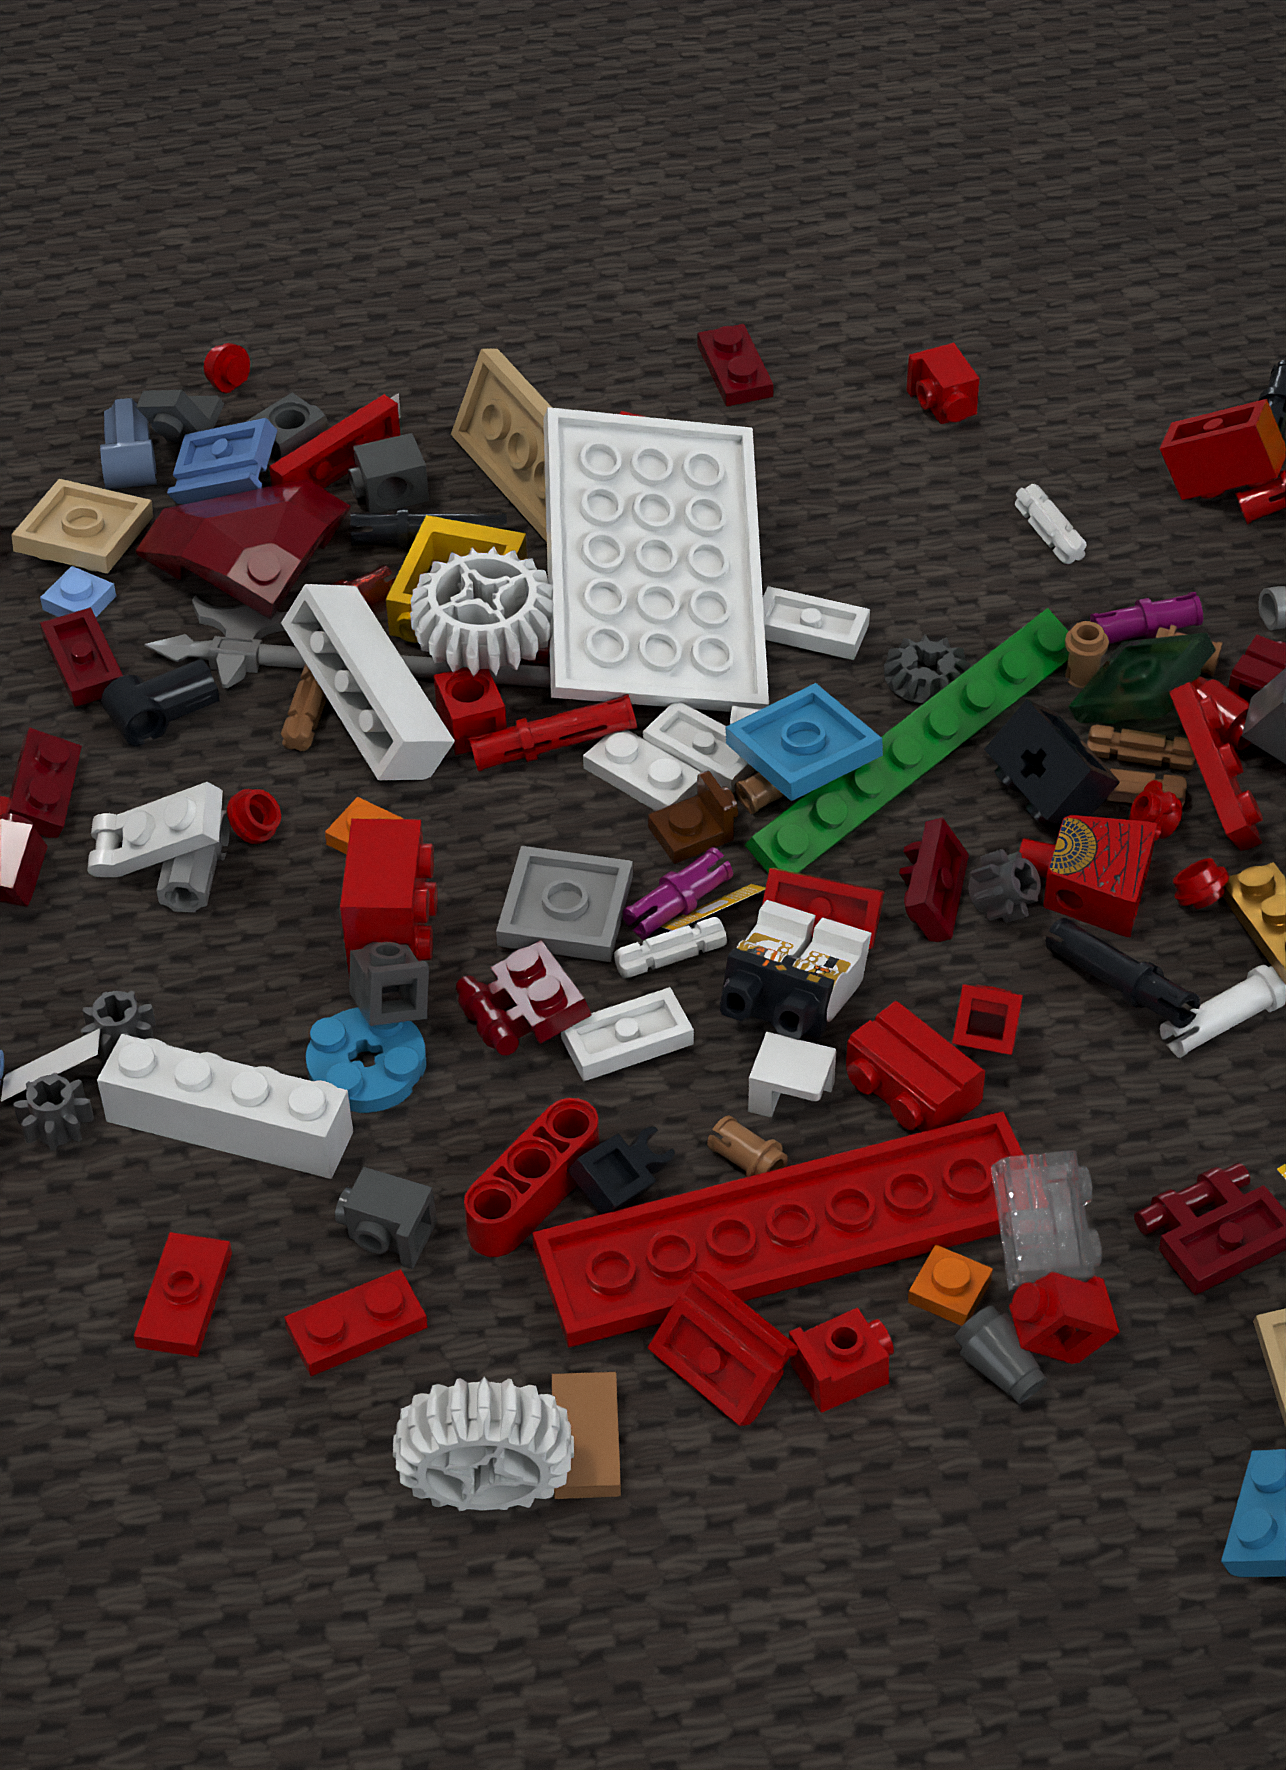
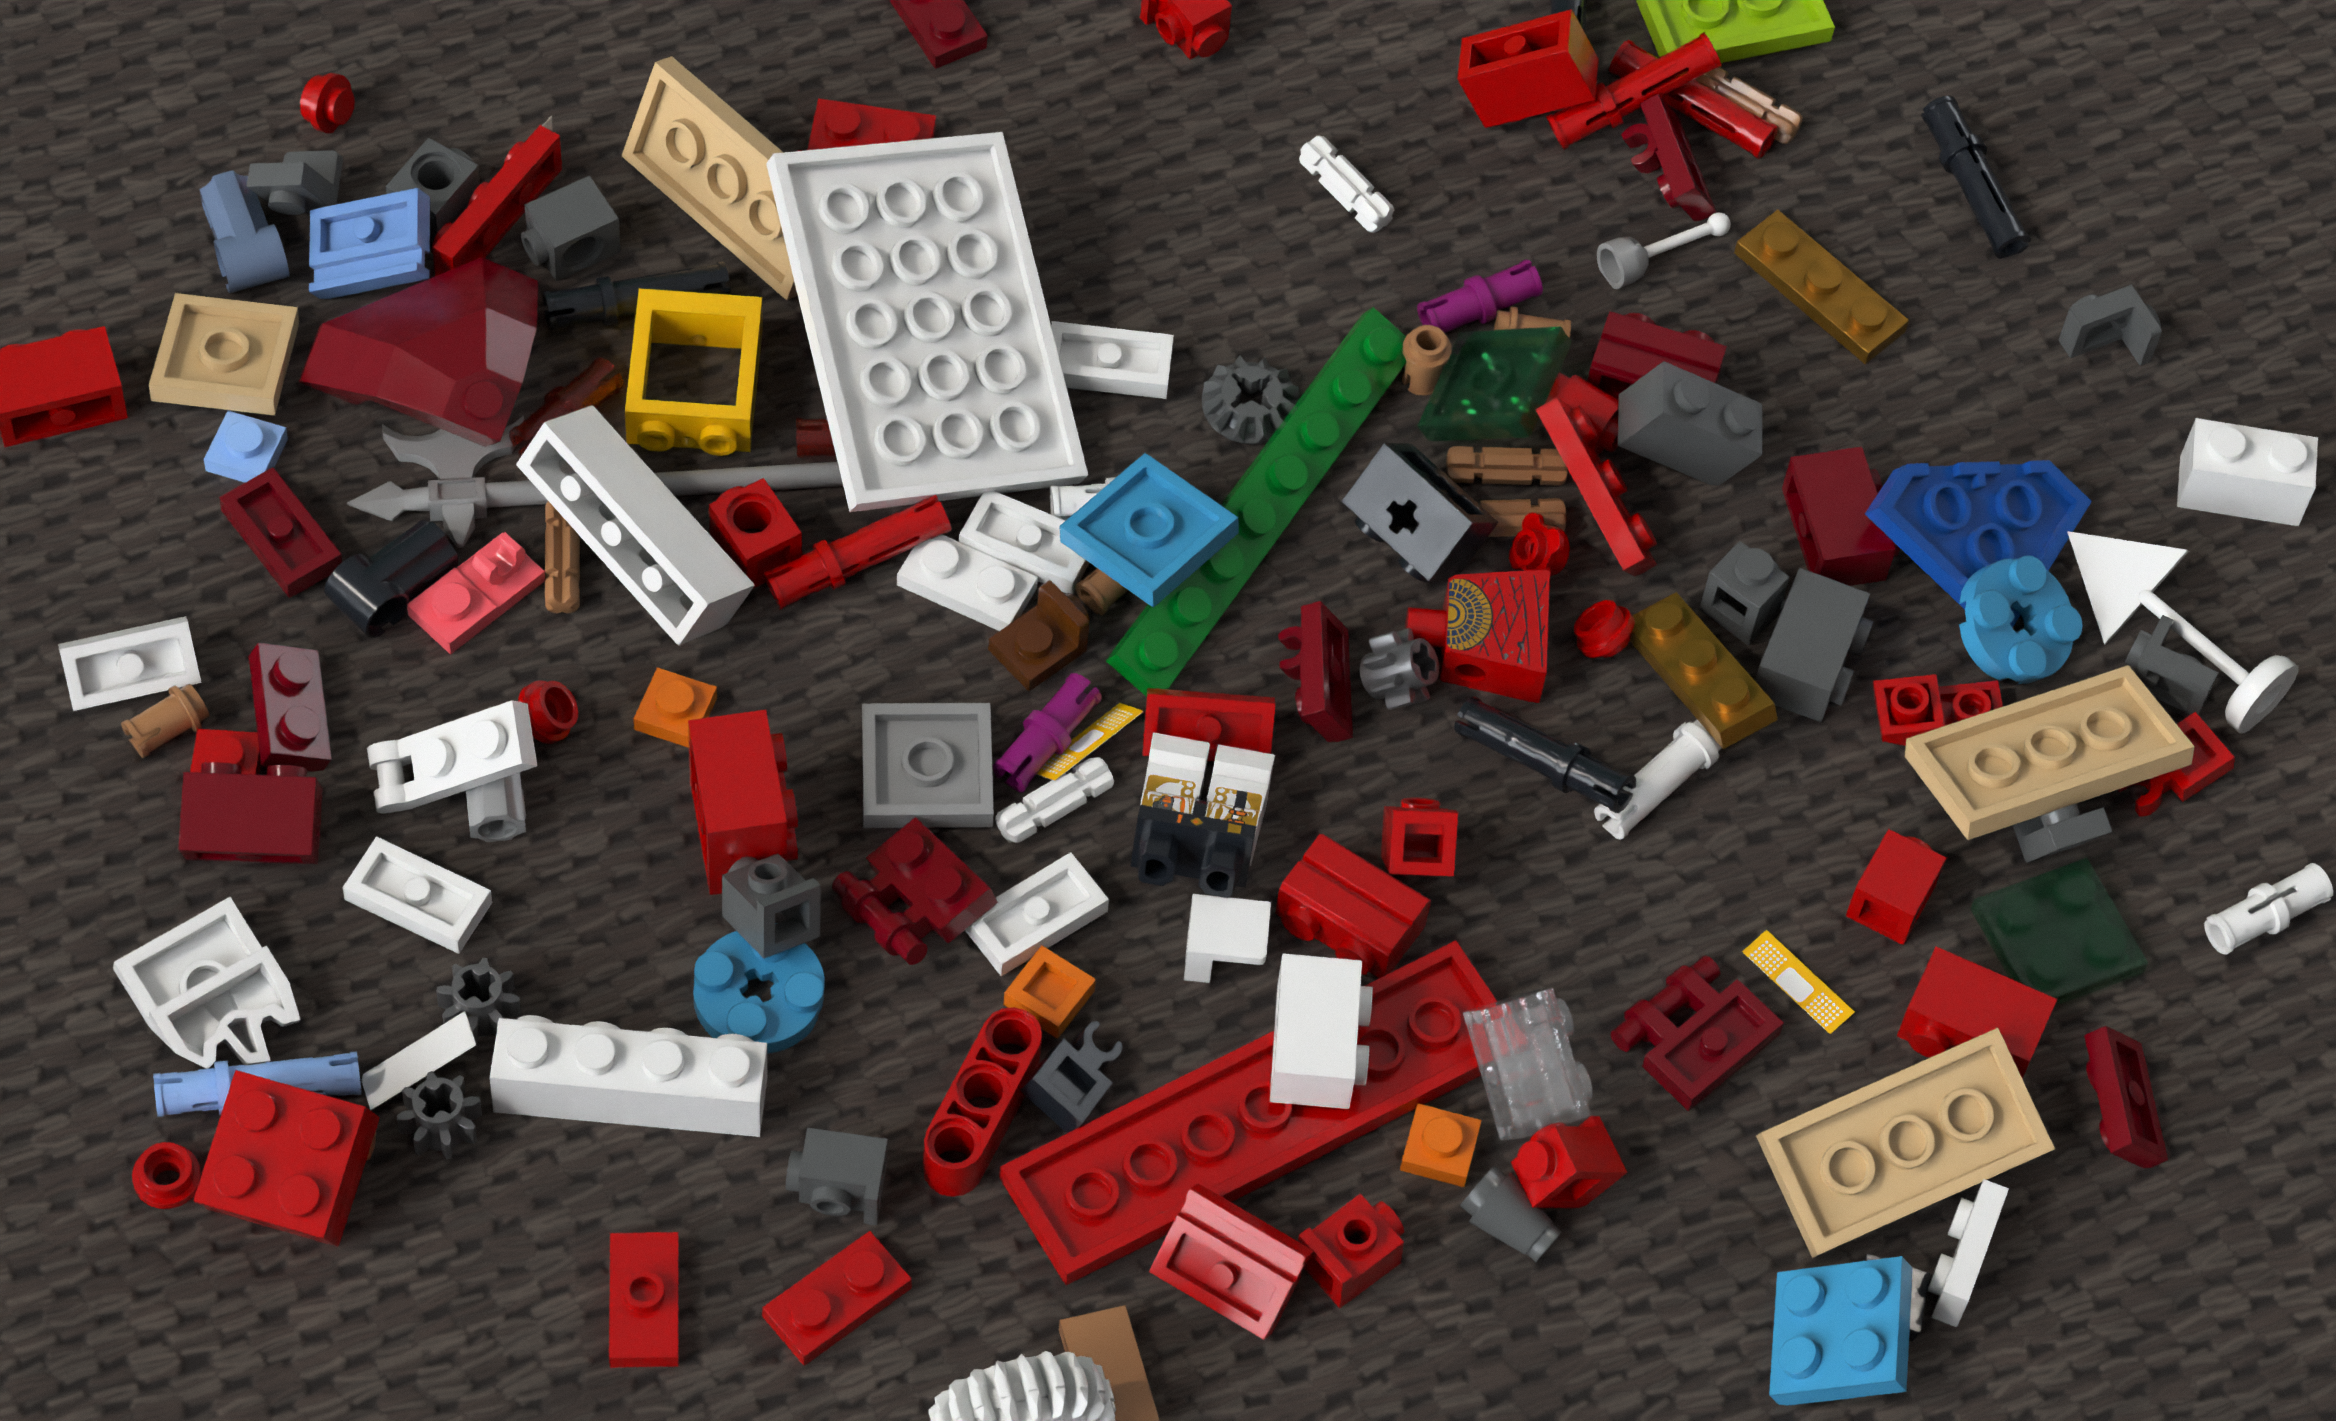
camera: 20 degrees left, 10 degrees up
(97, 938) = (417, 895): none -> white plate
(227, 723) = (476, 592): none -> coral plate
(482, 611) = (748, 439): white gear -> none
(622, 1097) = (1050, 990): none -> orange plate
(746, 1148) = (1197, 1028): medium nougat pin -> none
(850, 1161) = (1318, 1031): none -> white brick

